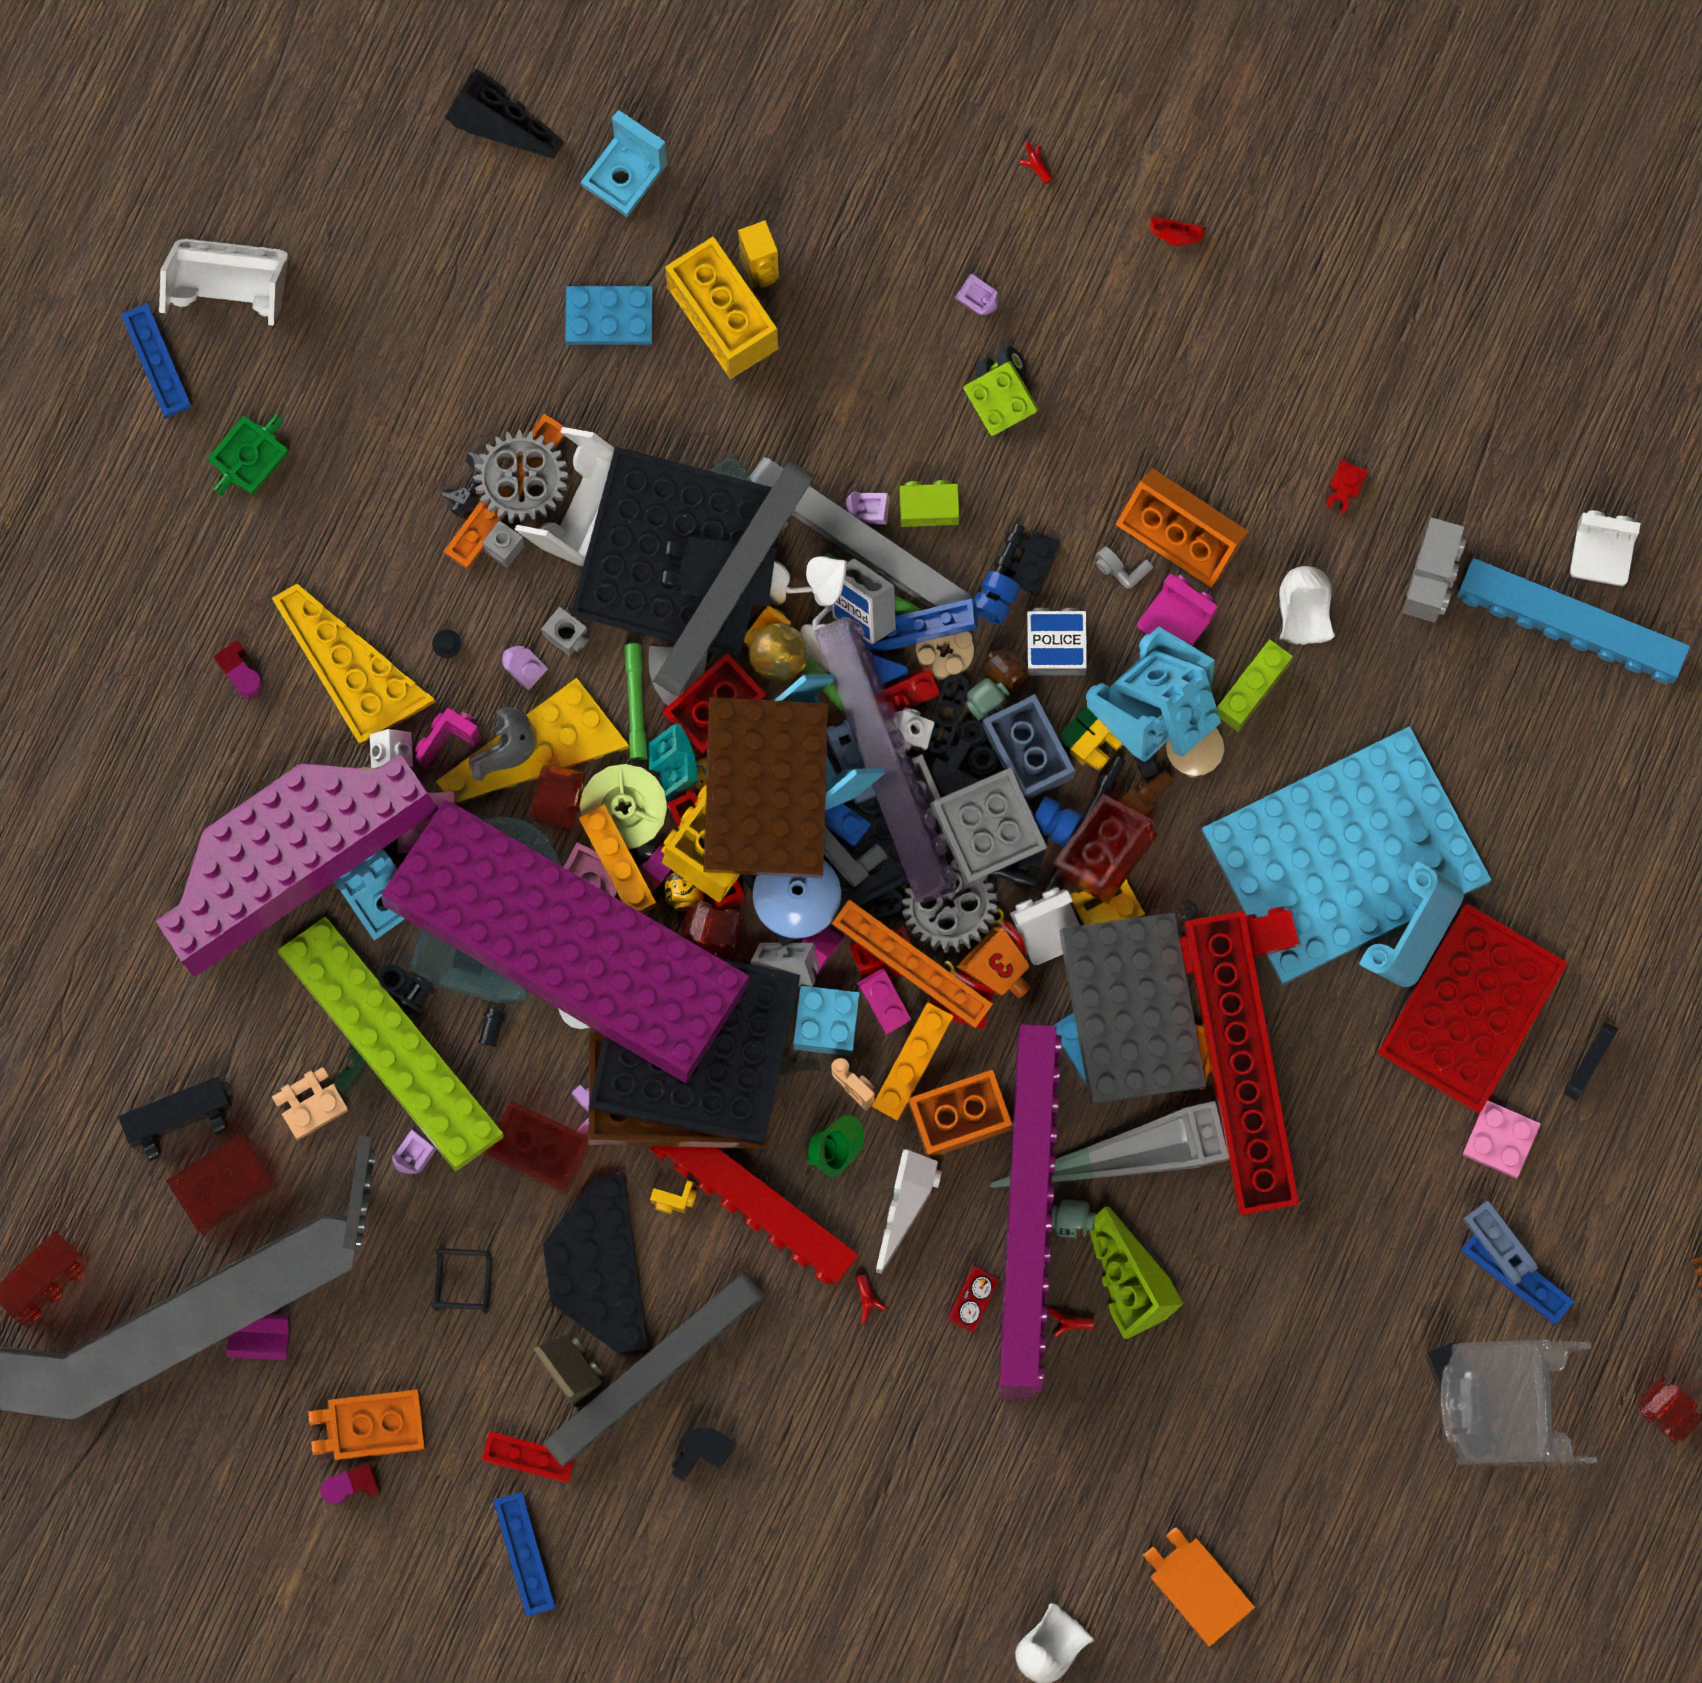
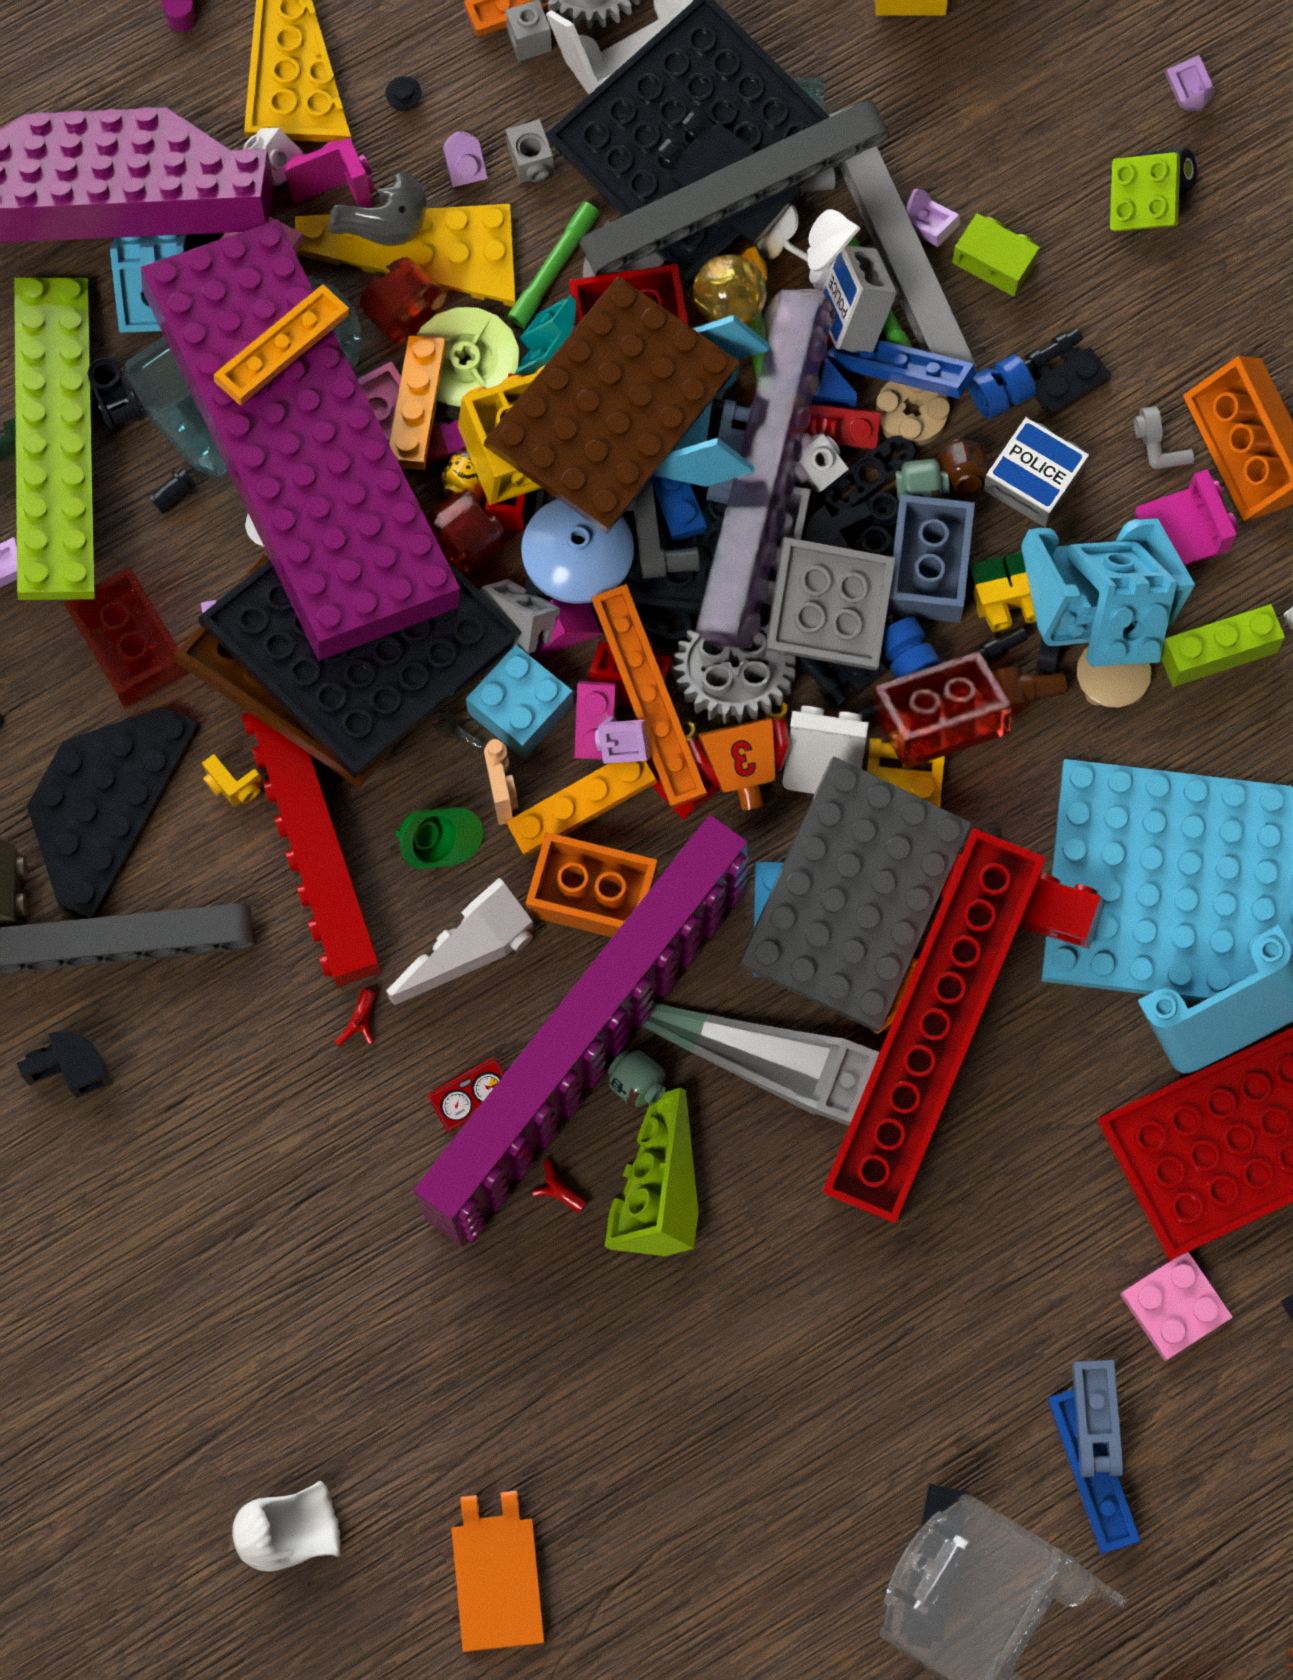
camera: 35 degrees right, 5 degrees down
(518, 888) = (281, 345): none -> light orange plate
(916, 1005) = (622, 740): none -> lavender bracket

